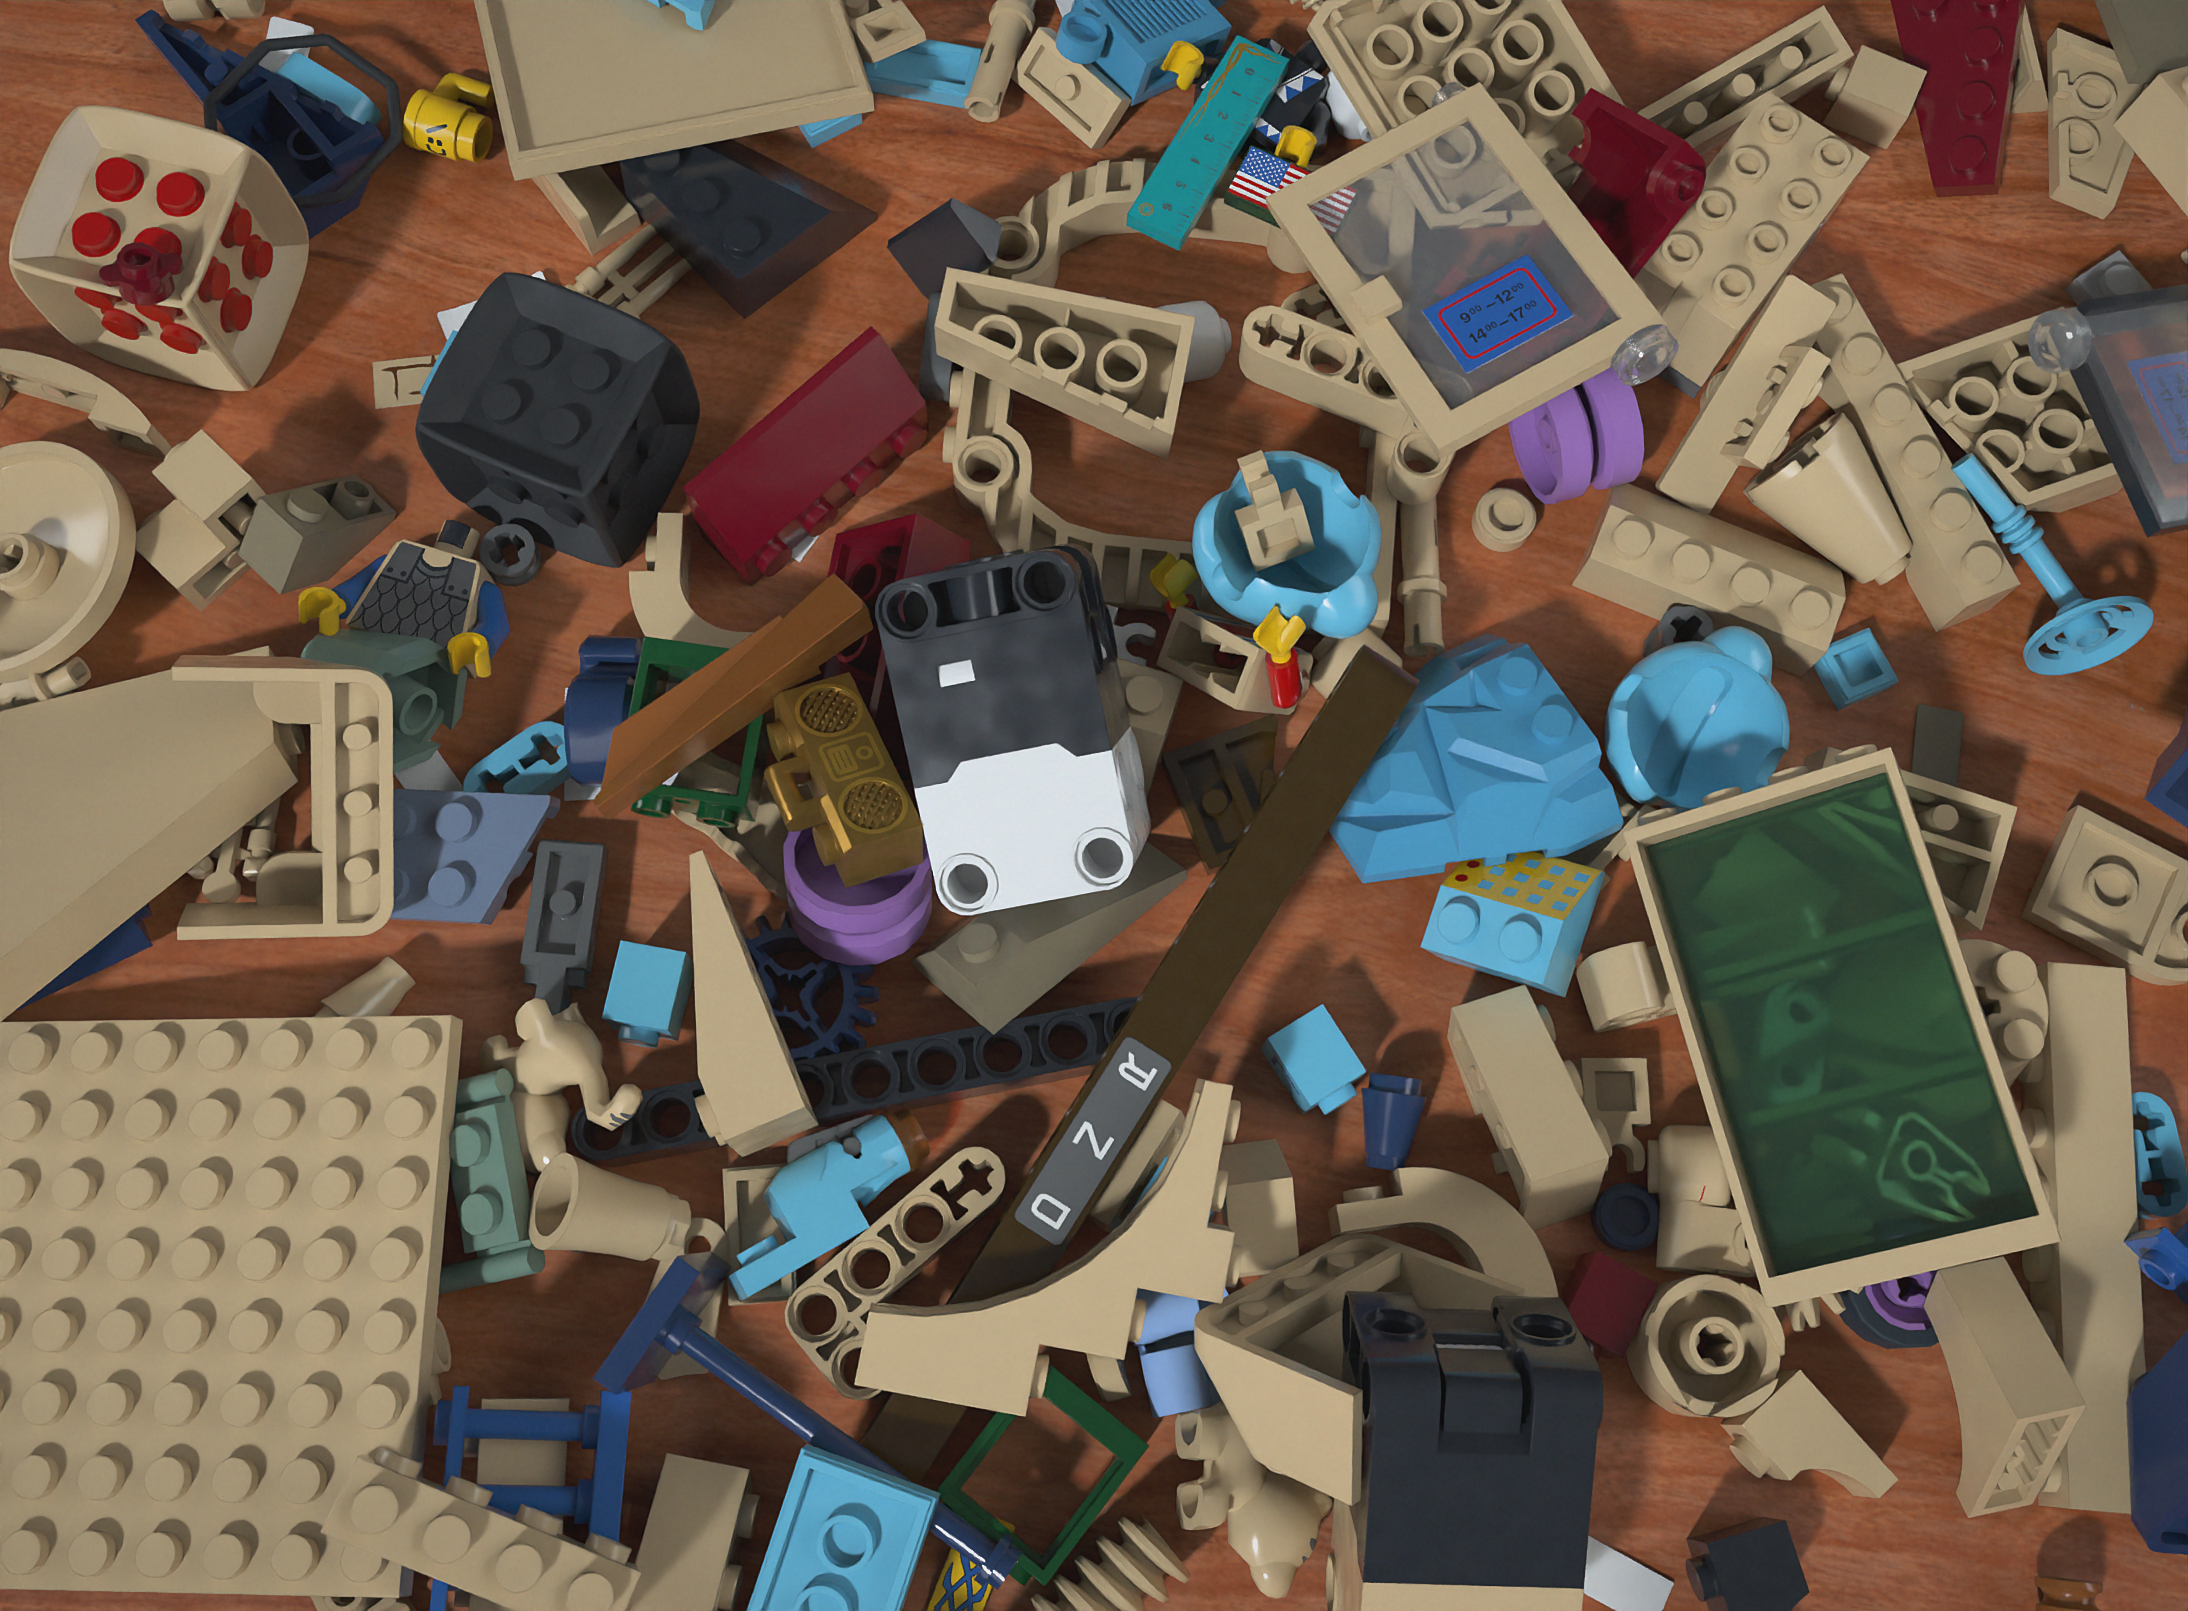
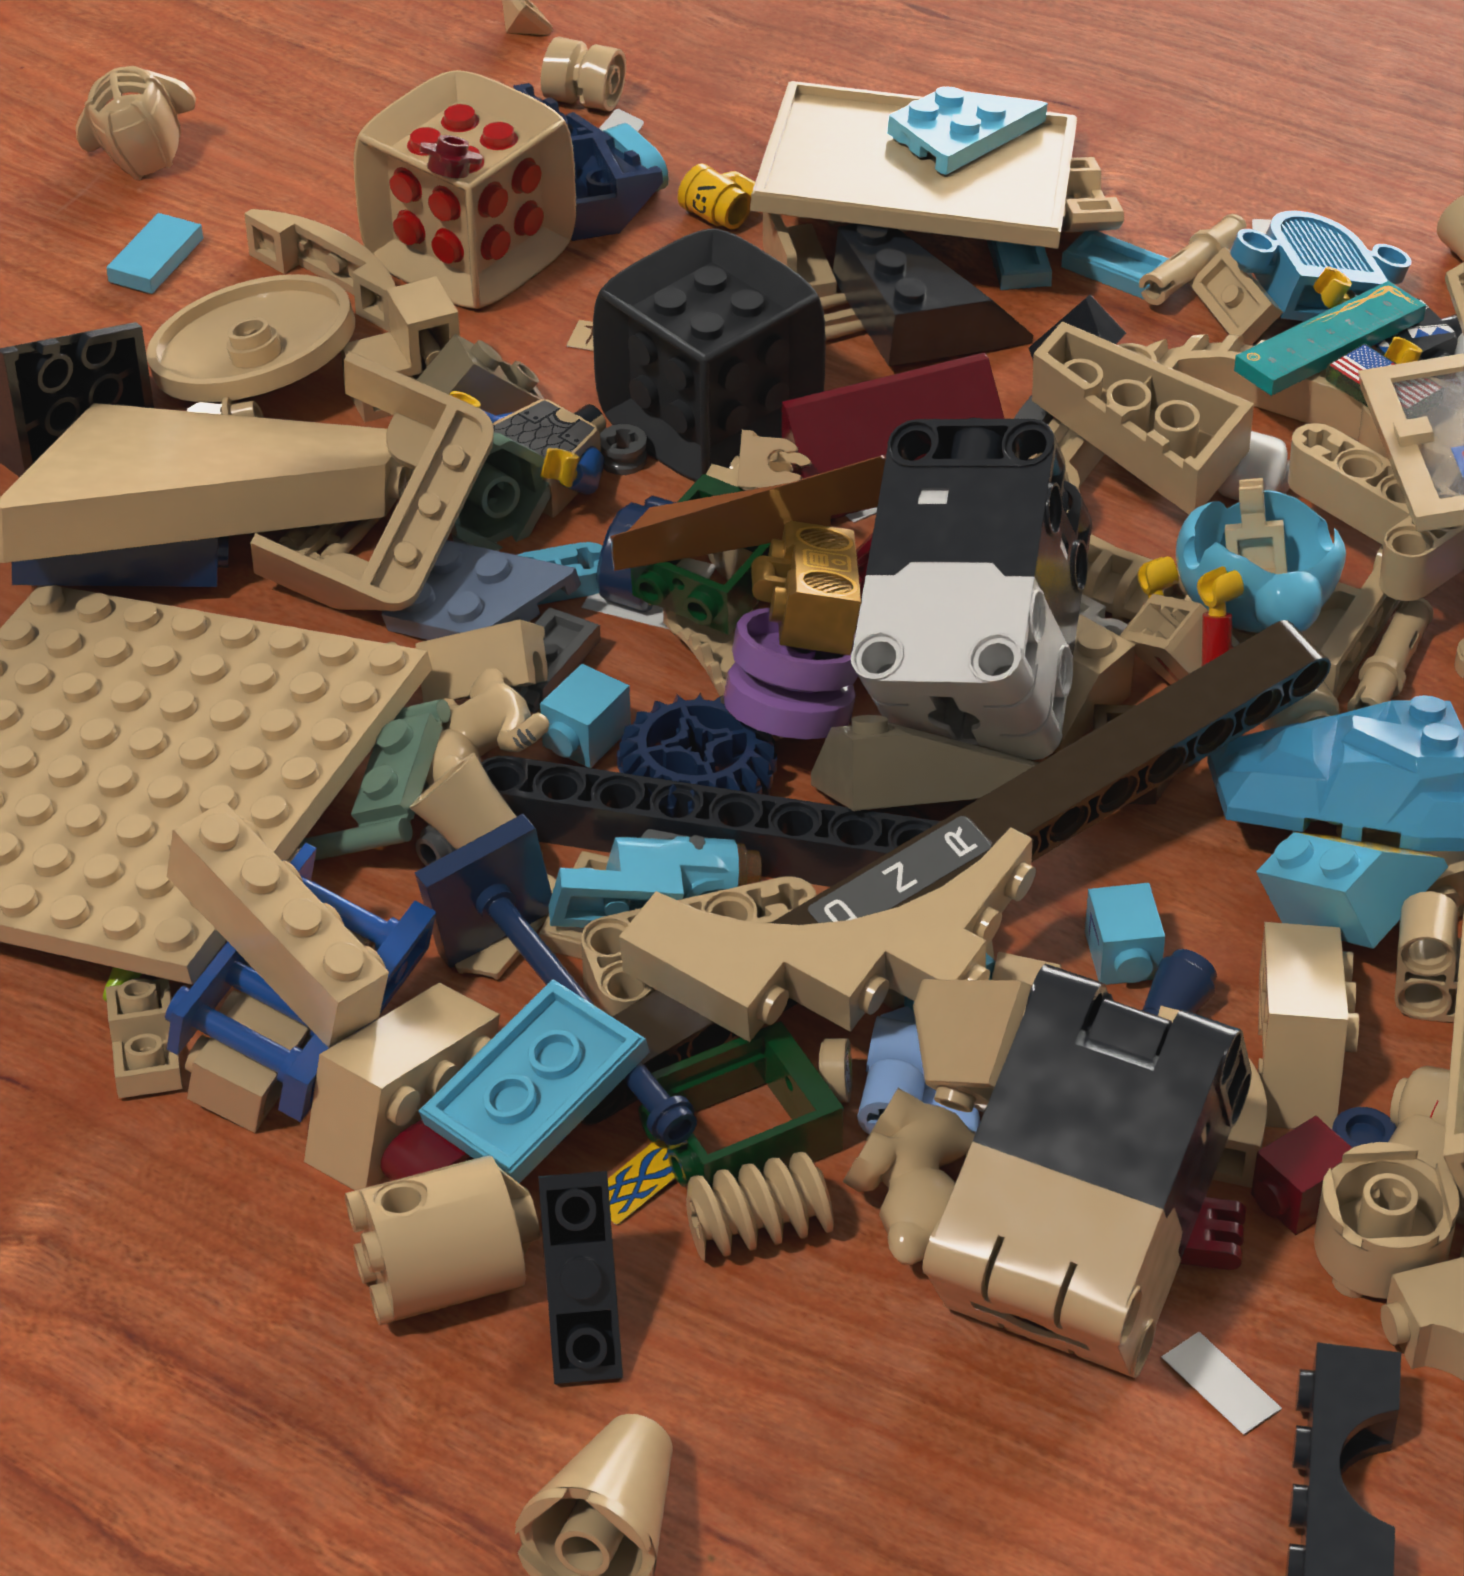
camera: 30 degrees right, 30 degrees down
(351, 56) = (645, 194): black piece -> none
(505, 966) = (460, 658): none -> tan hinge
(715, 602) = (765, 463): none -> tan hinge
(741, 1053) = (642, 721): tan slope -> none
(1618, 1096) = (1387, 1051): tan plate -> none

